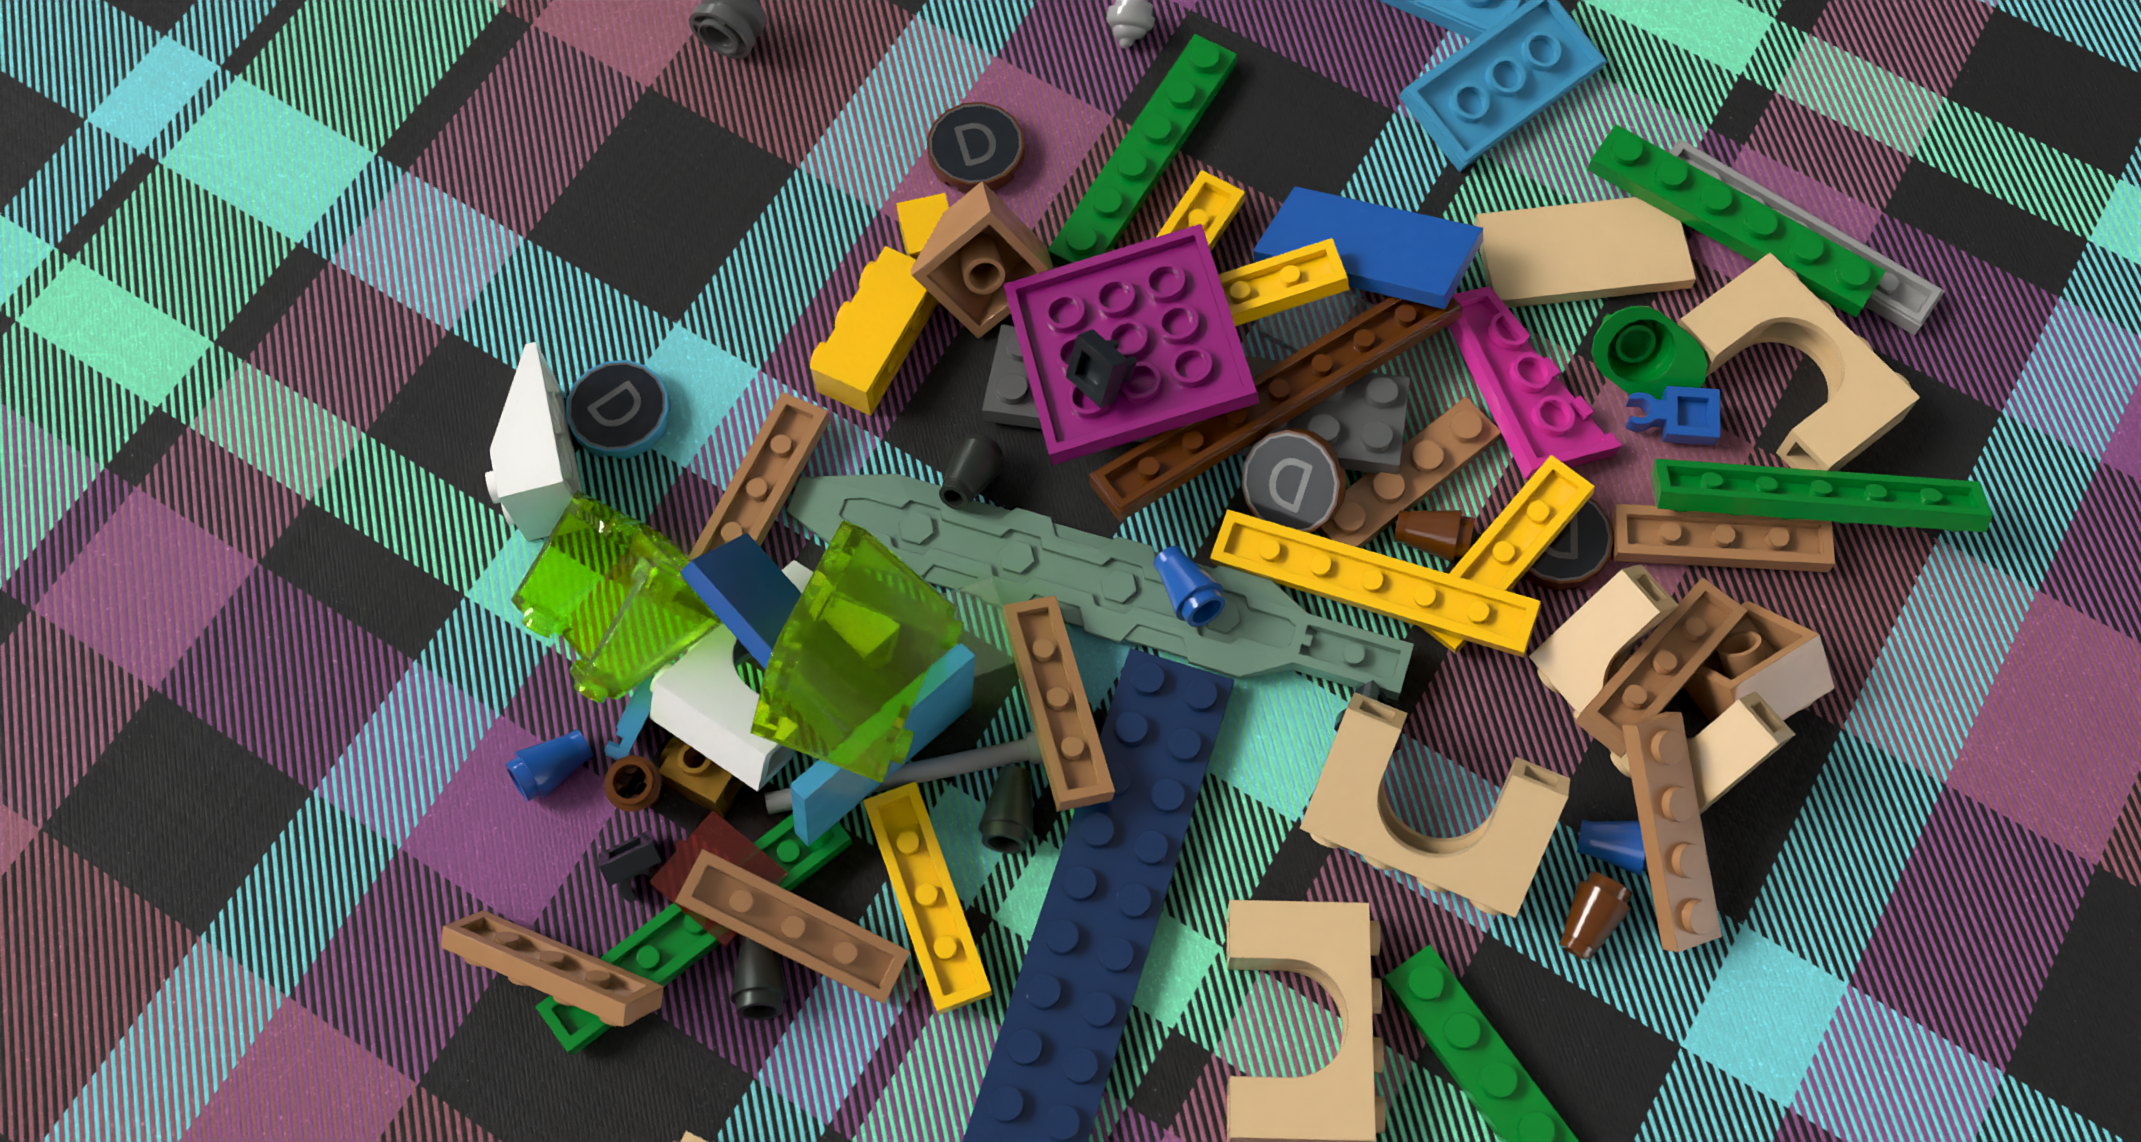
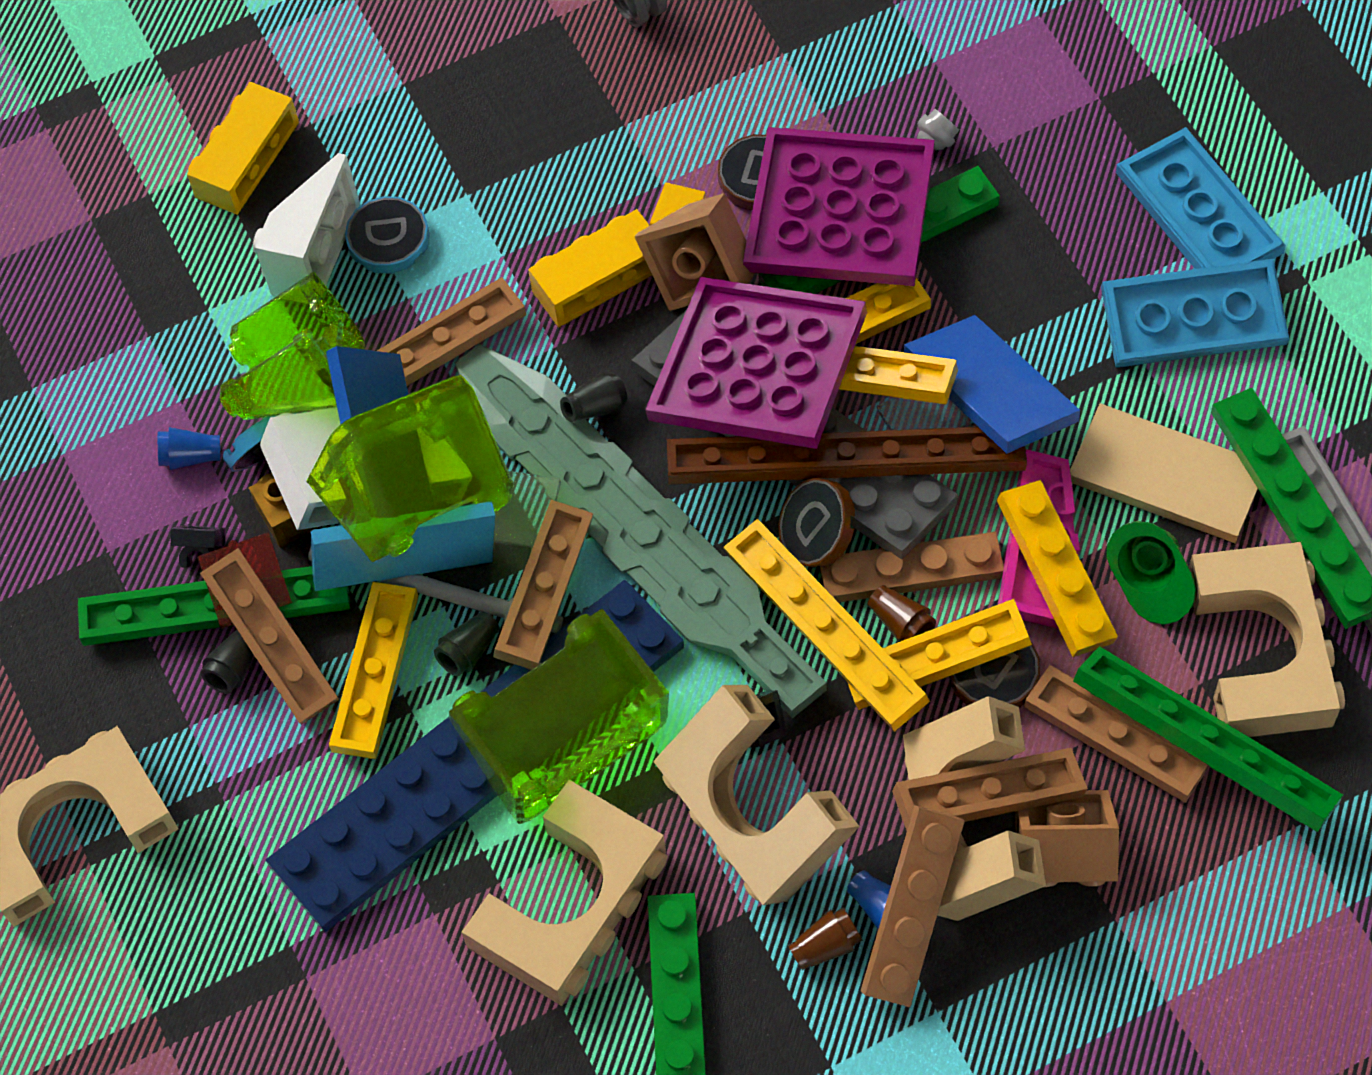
camera: 35 degrees right, 5 degrees down
(390, 394) = (242, 147): none -> yellow brick
(552, 968) = (101, 577): medium nougat plate -> none
(625, 776) = (229, 489): reddish brown cone -> none
(1095, 140) = (840, 206): none -> magenta plate
(1099, 367) = (716, 364): black tile -> none
(1179, 834) = (563, 717): none -> clear neon green windscreen
(1191, 590) = (688, 557): blue cone -> none
(1558, 401) = (1057, 568): none -> yellow plate
(1683, 414) = (1152, 631): blue plate -> none

